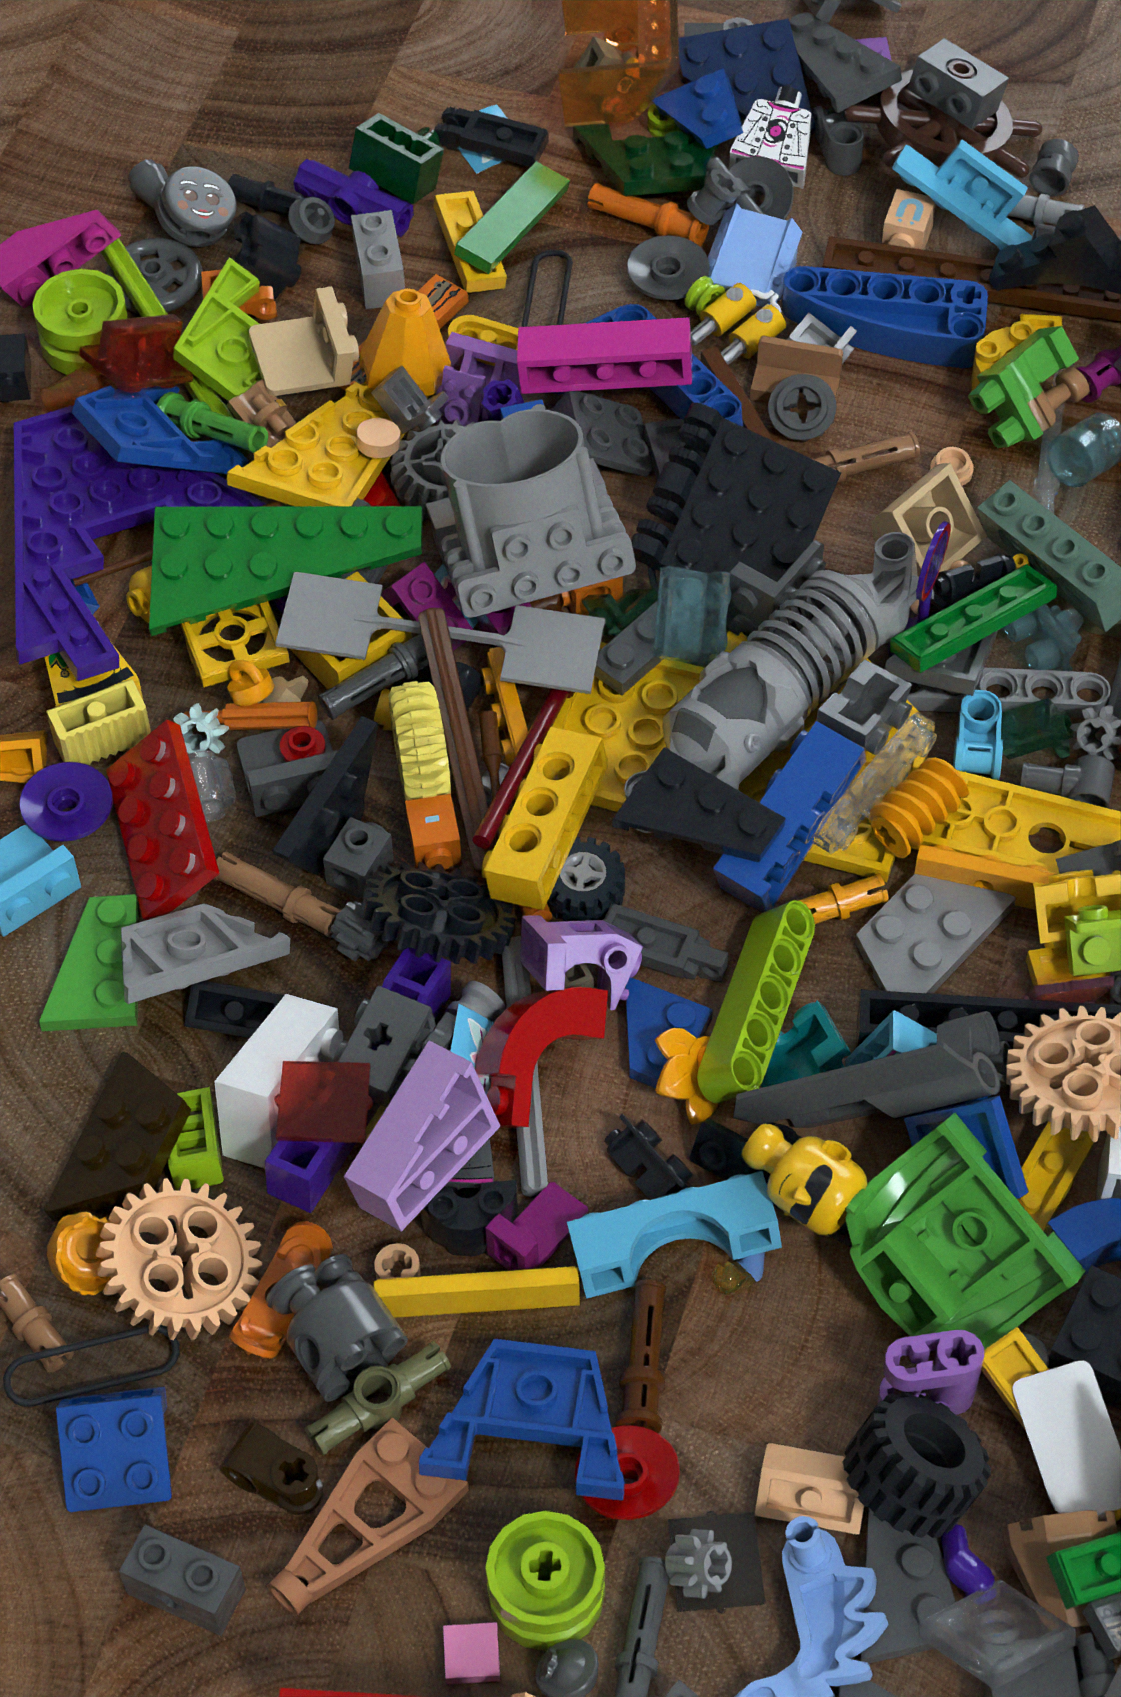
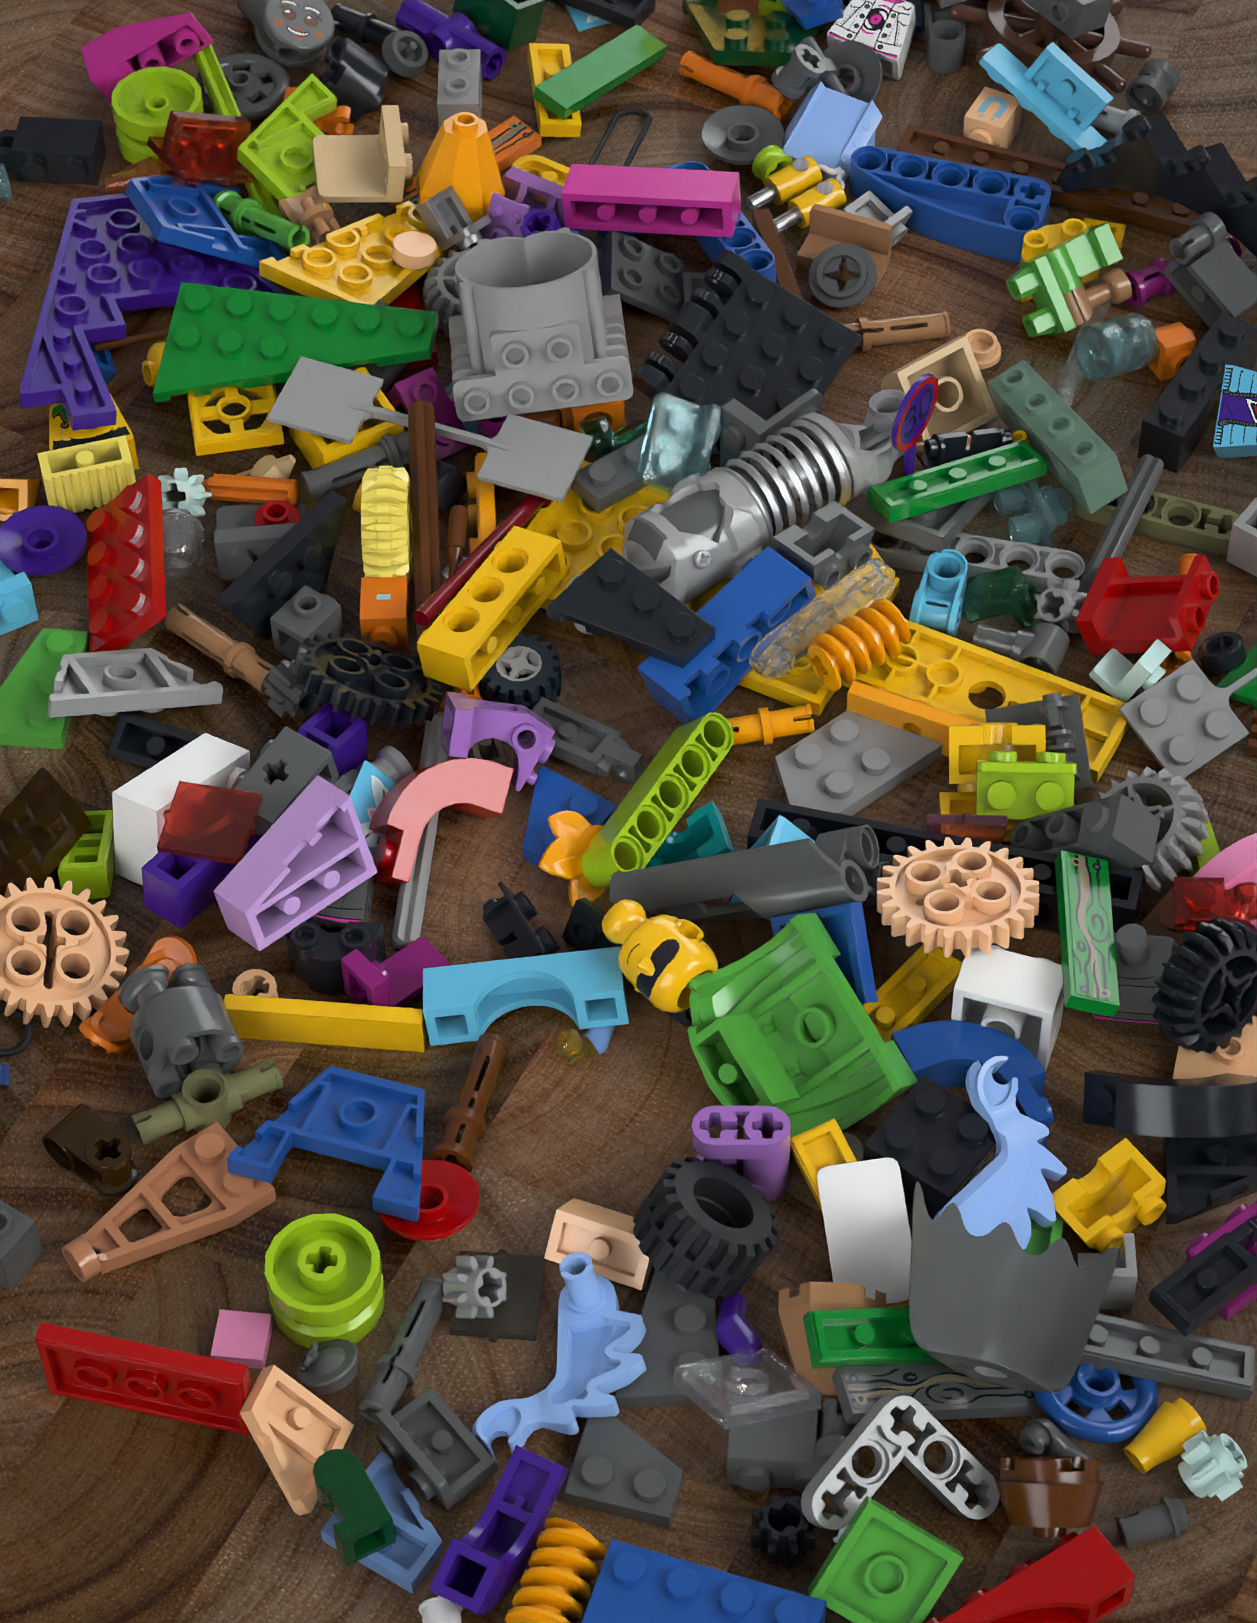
camera: 10 degrees right, 5 degrees down
(250, 686) = (240, 459): light orange tile -> none

